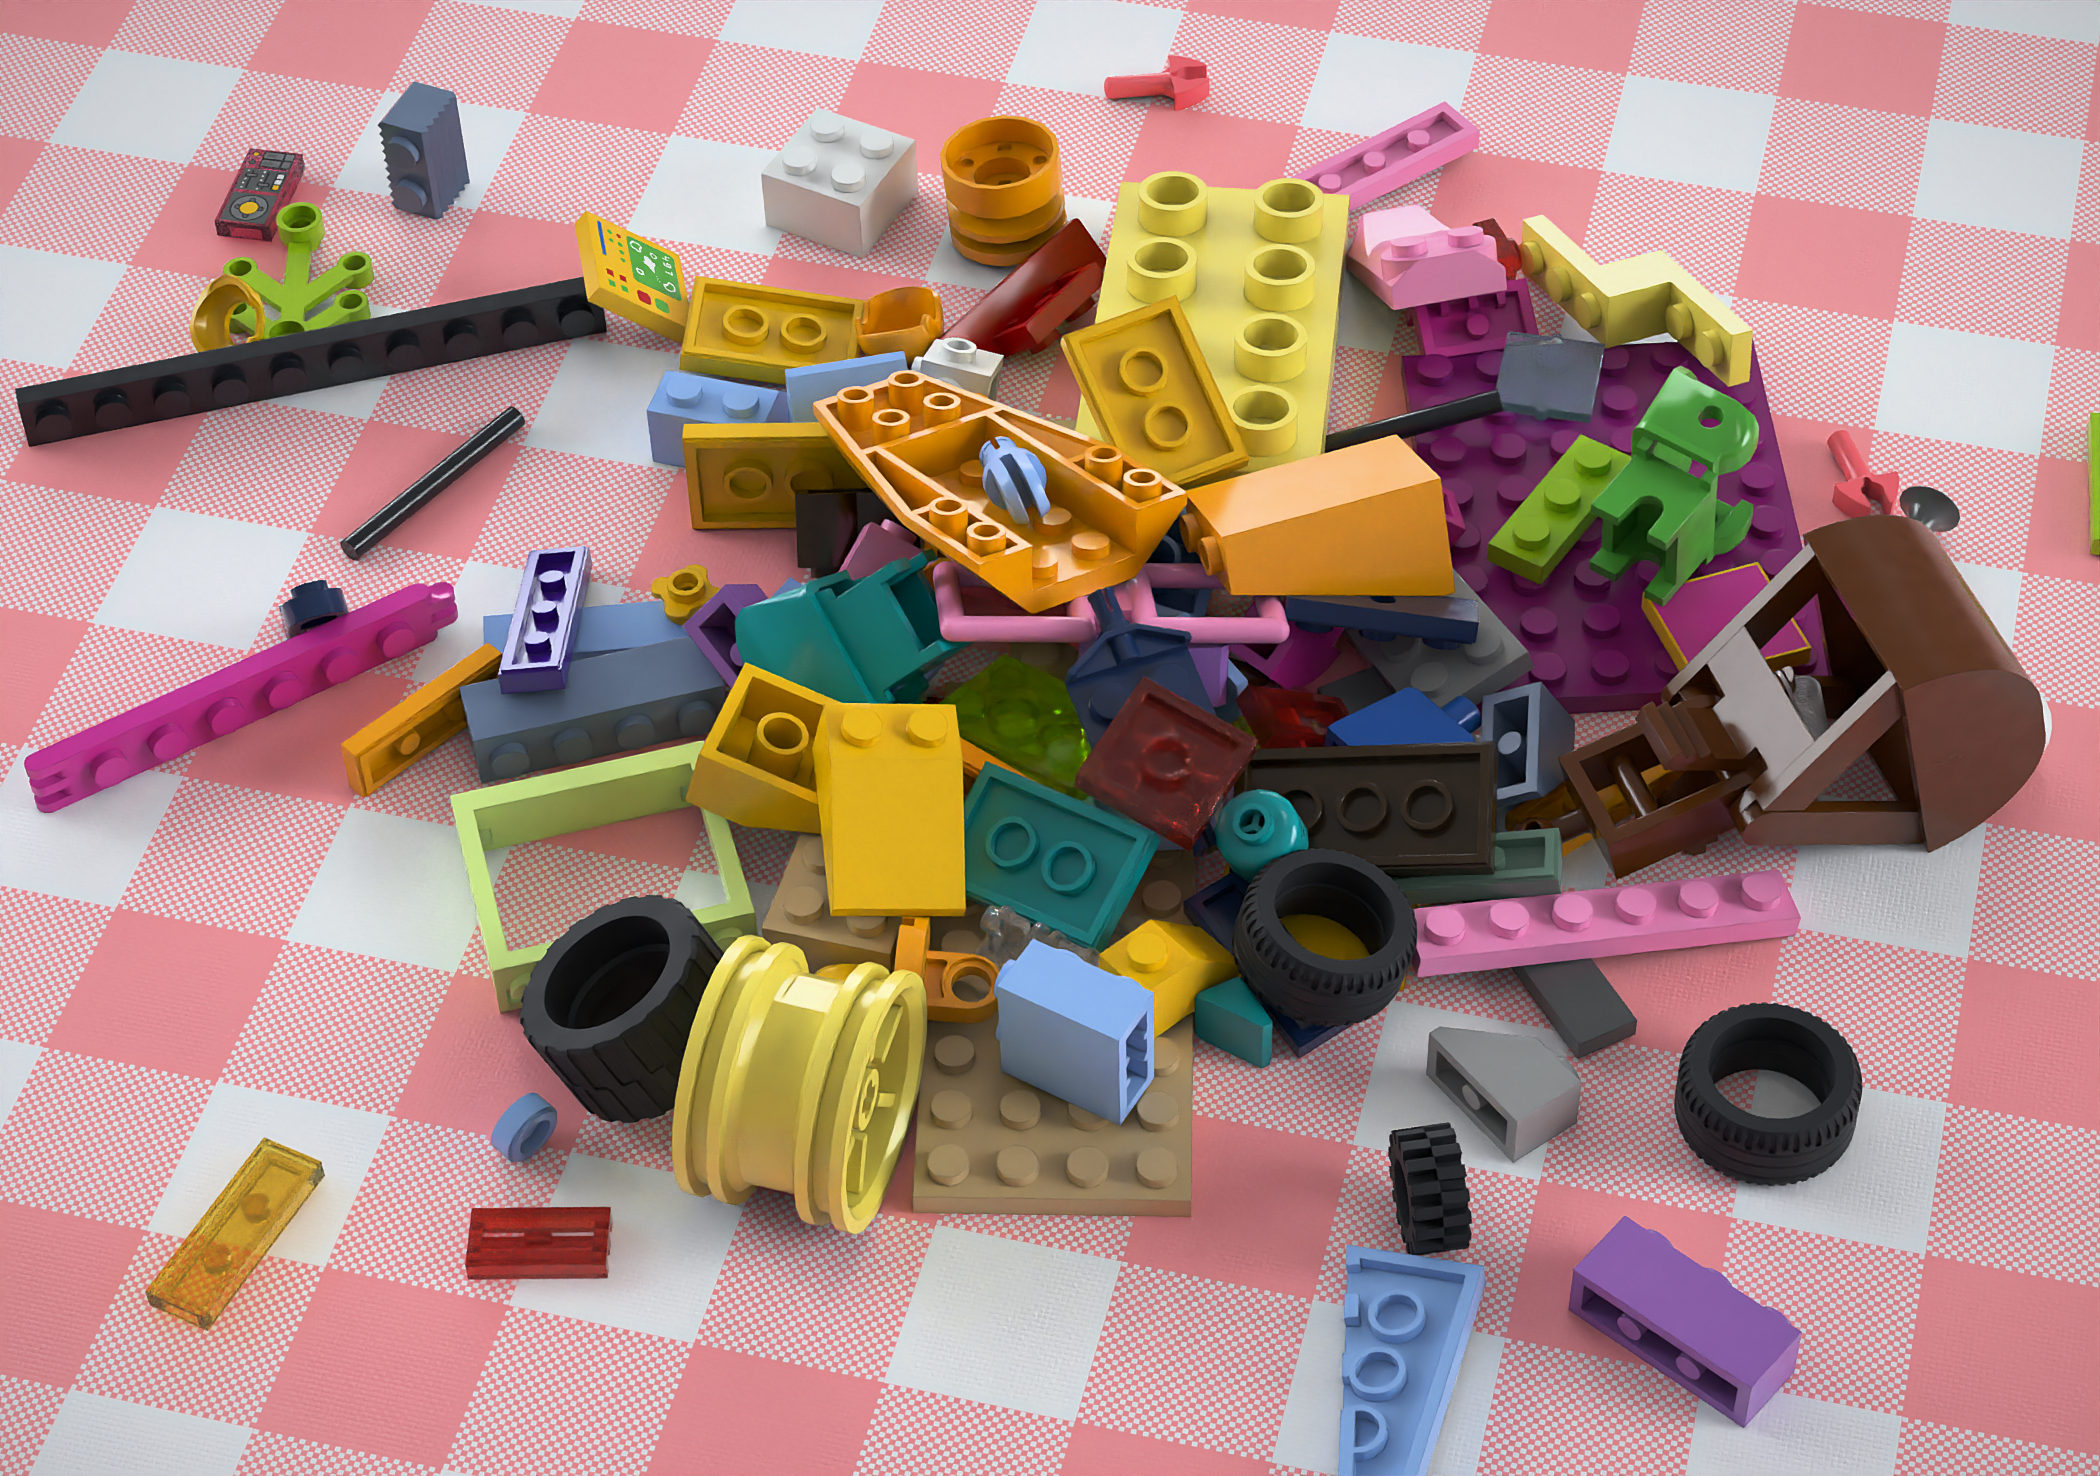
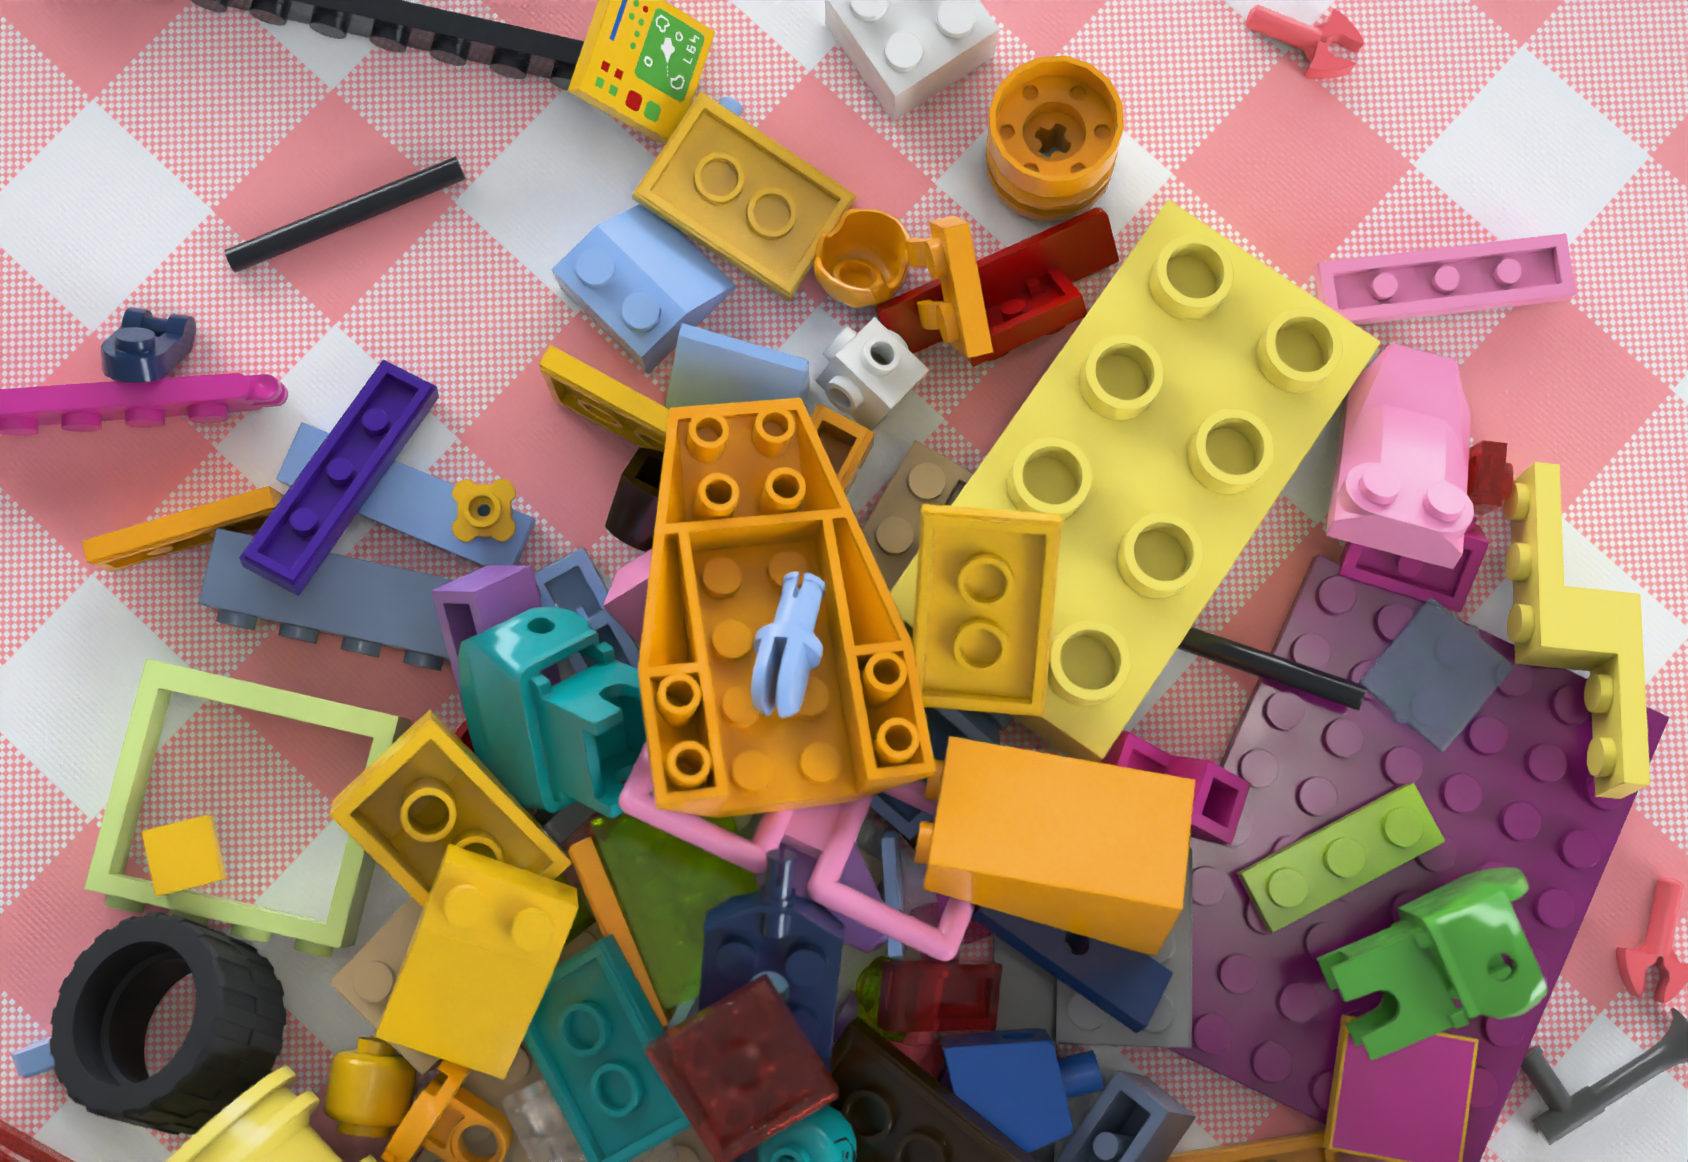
camera: 25 degrees right, 35 degrees up
(569, 895) = (184, 855): none -> yellow tile
(990, 259) = (953, 260): none -> light orange plate

